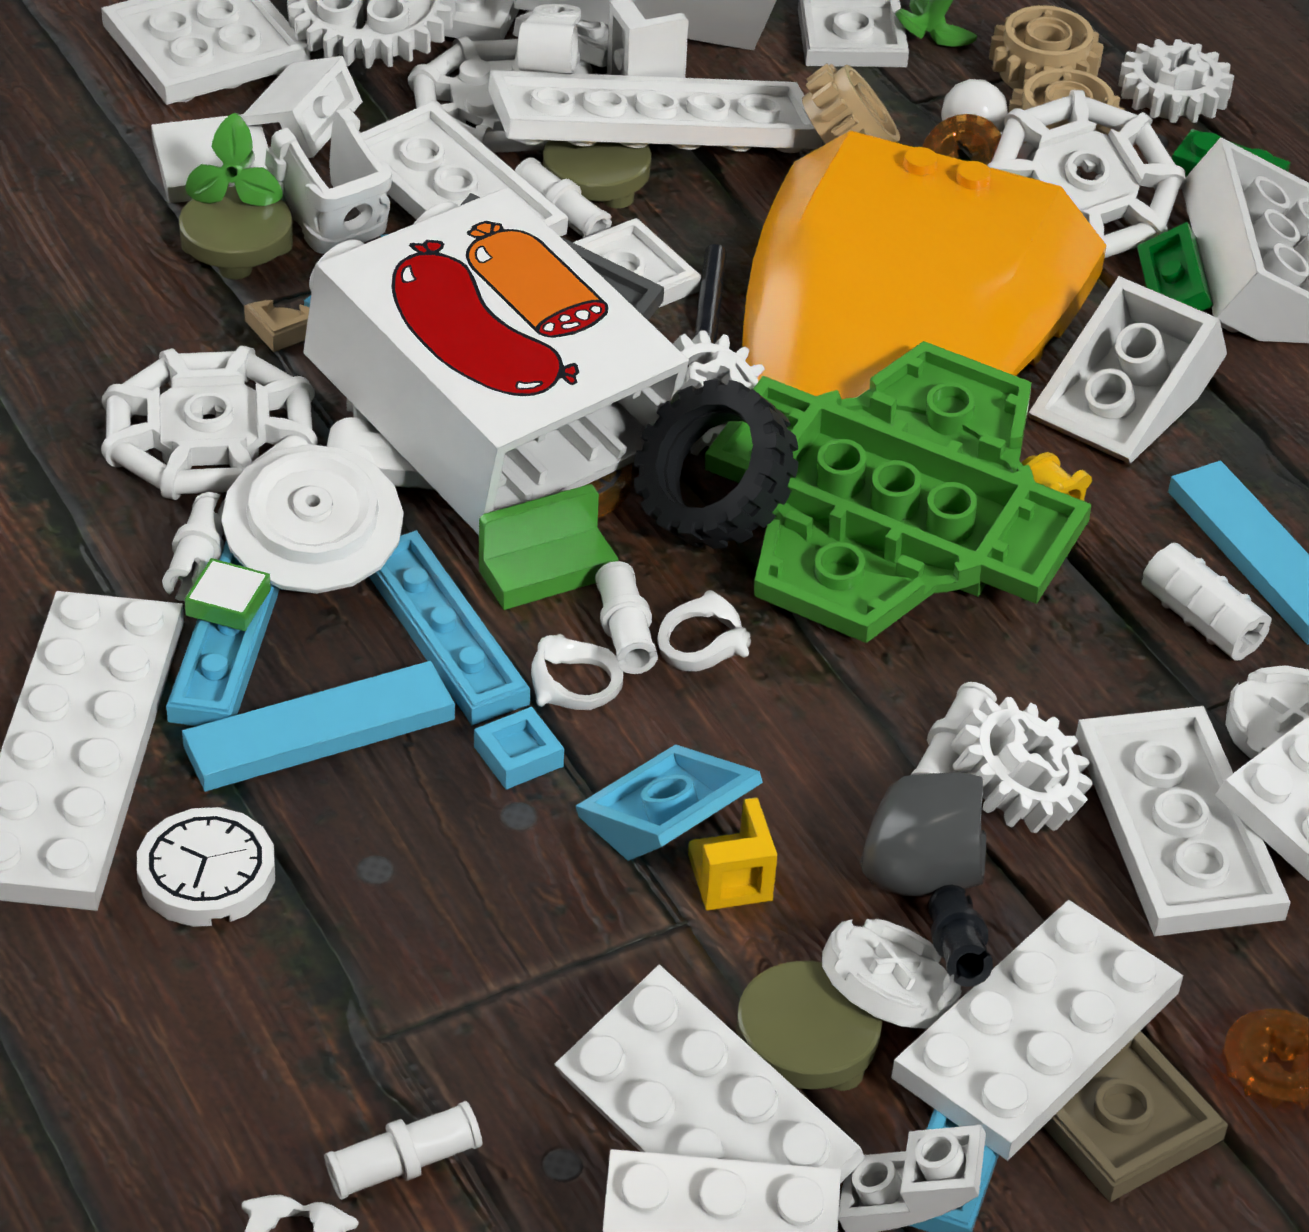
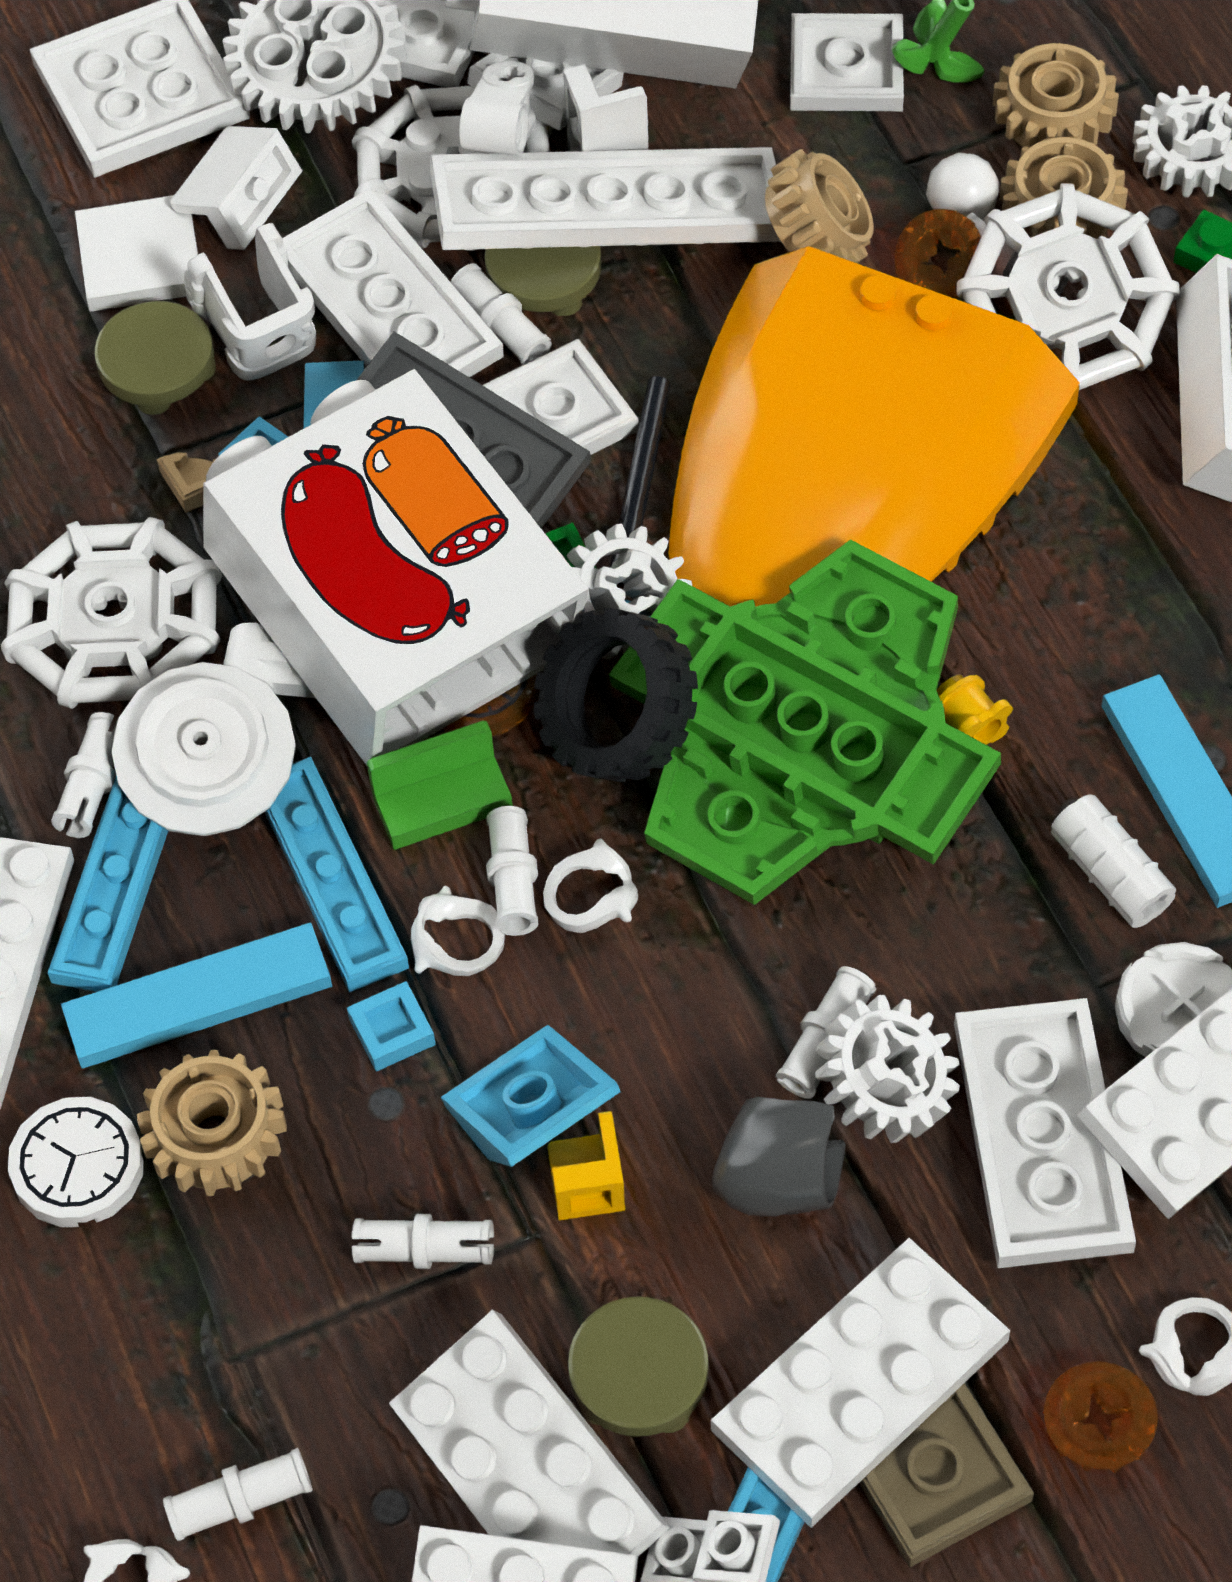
camera: 10 degrees right, 15 degrees up
(227, 594) = (113, 842): tile -> none
(234, 148) = (150, 273): bright green plant -> none
(346, 824) = (216, 1155): none -> tan gear
(573, 922) = (422, 1241): none -> white pin
(889, 973) = (724, 1314): white tile -> none
(960, 935) = (795, 1275): black pin -> none
(1131, 371) = (1077, 562): white slope -> none
(1175, 267) = (1149, 422): green plate -> none

